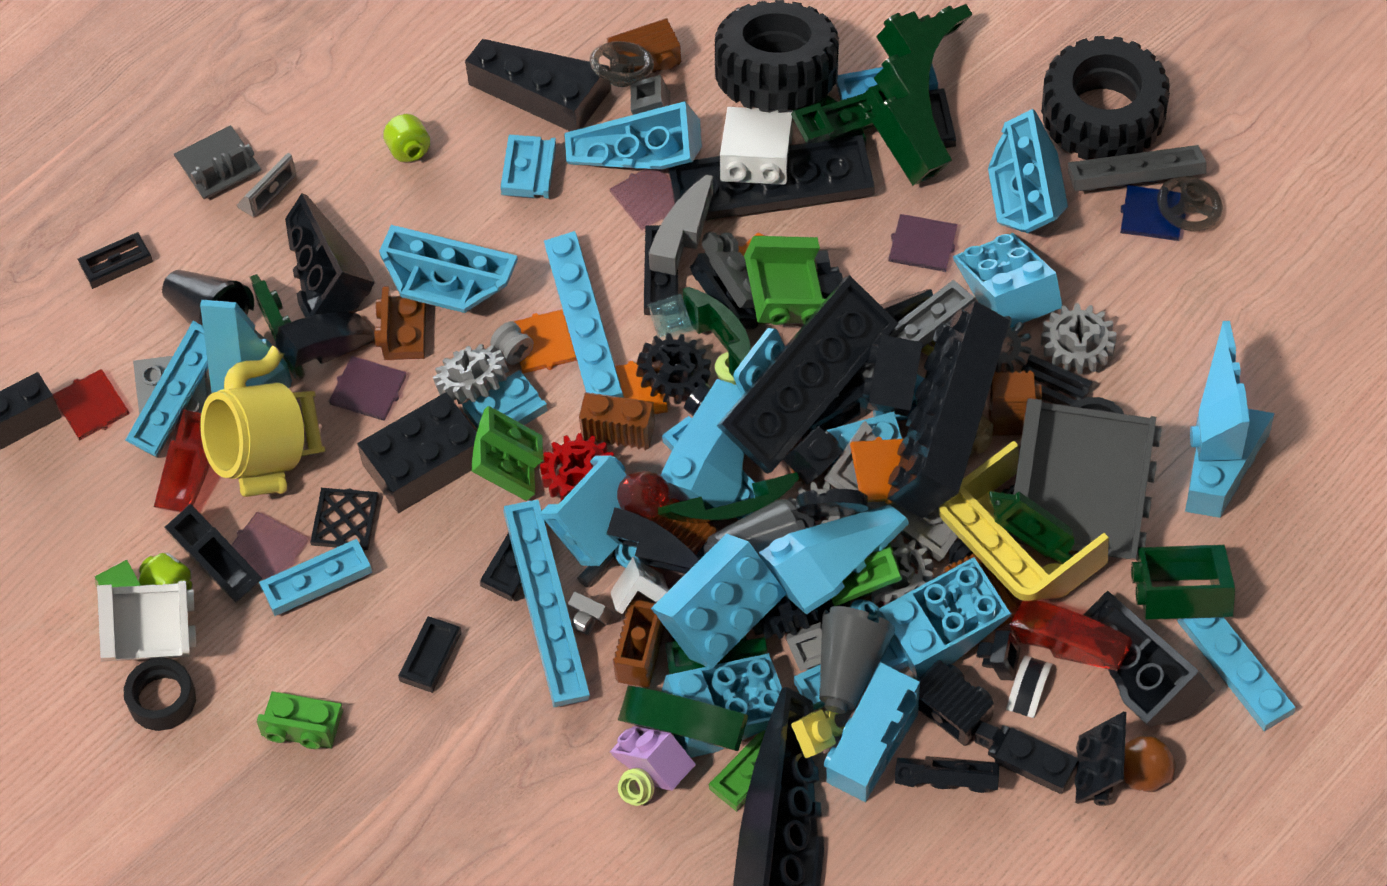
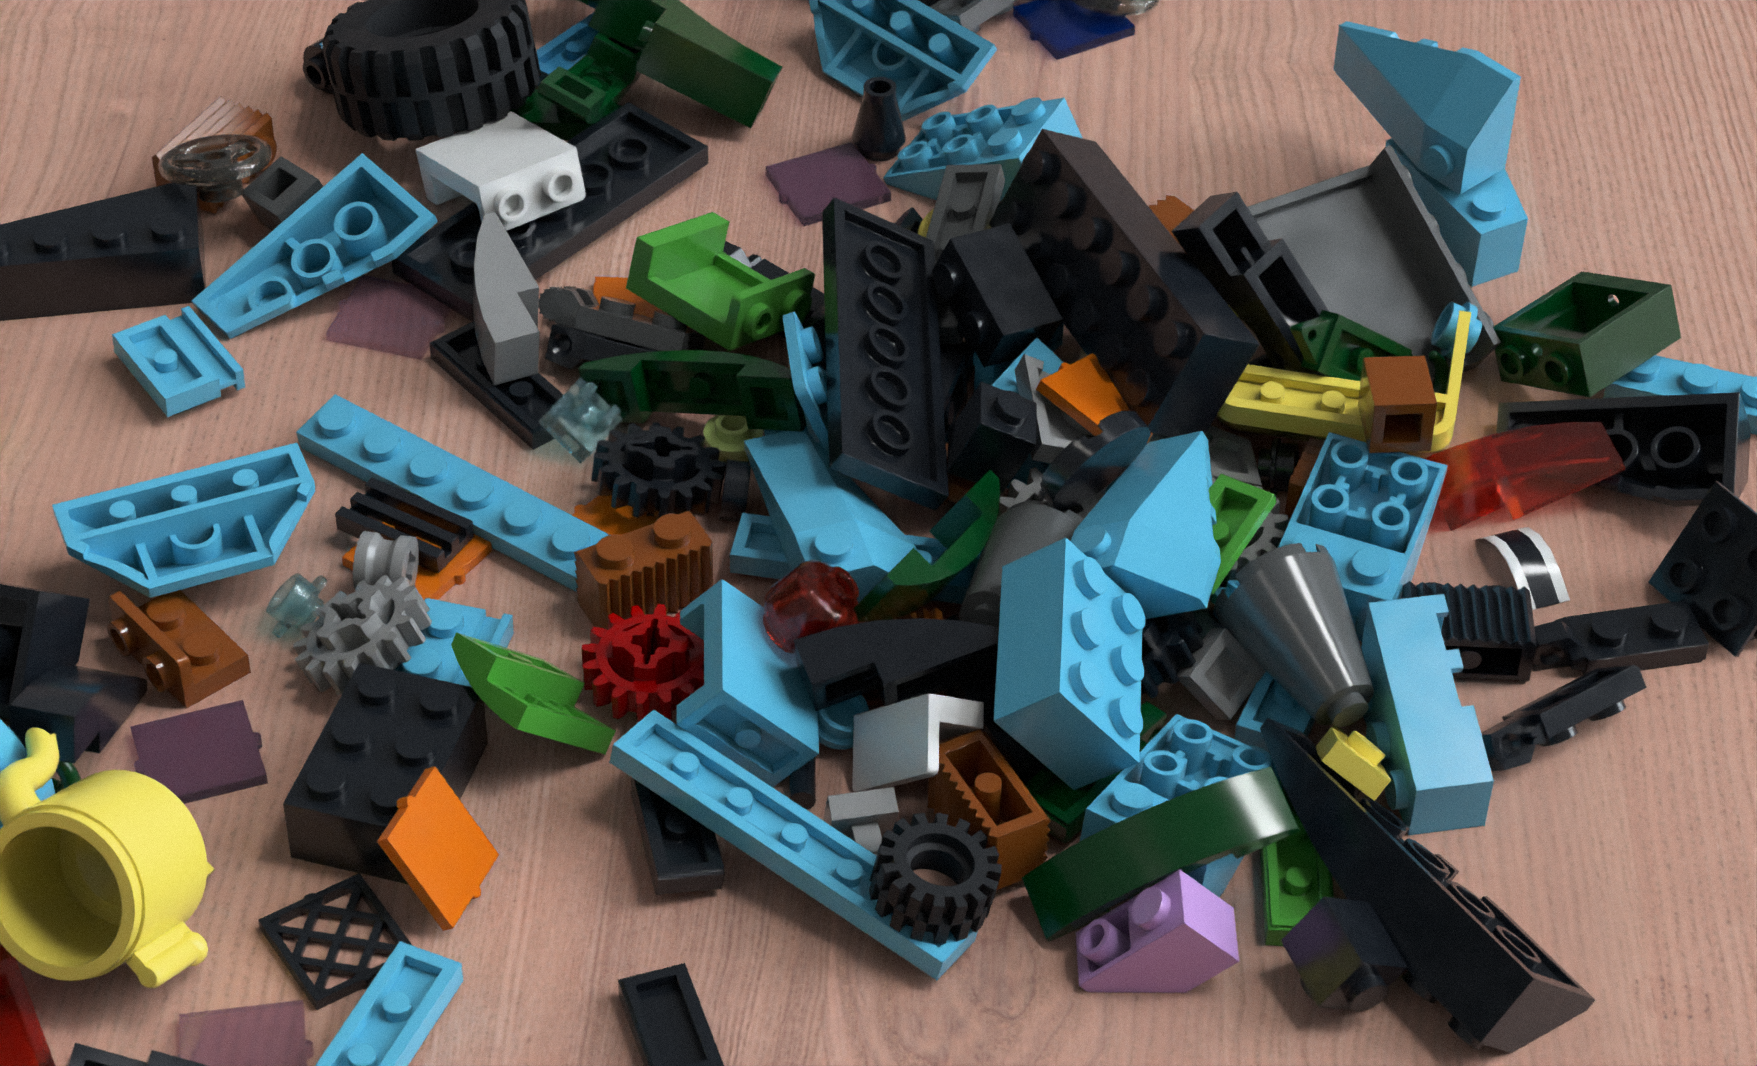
camera: 45 degrees left, 15 degrees down
(404, 505) = (438, 848): none -> orange piece
(463, 336) = (295, 603): none -> clear light blue plate
(536, 303) = (410, 518): none -> black tile
(583, 641) = (930, 905): none -> black tyre
(628, 790) = (1188, 1015): yellowish green plate -> none
(717, 820) = (1343, 955): none -> black brick
(973, 225) = (879, 123): none -> black cone
(1000, 655) = (1460, 545): black tile -> none
(1003, 566) = (1397, 404): none -> dark orange brick
(1006, 446) = (1250, 272): none -> black slope
(1063, 344) = (1154, 162): light grey gear -> none
(1119, 537) = (1445, 328): none -> medium azure plate

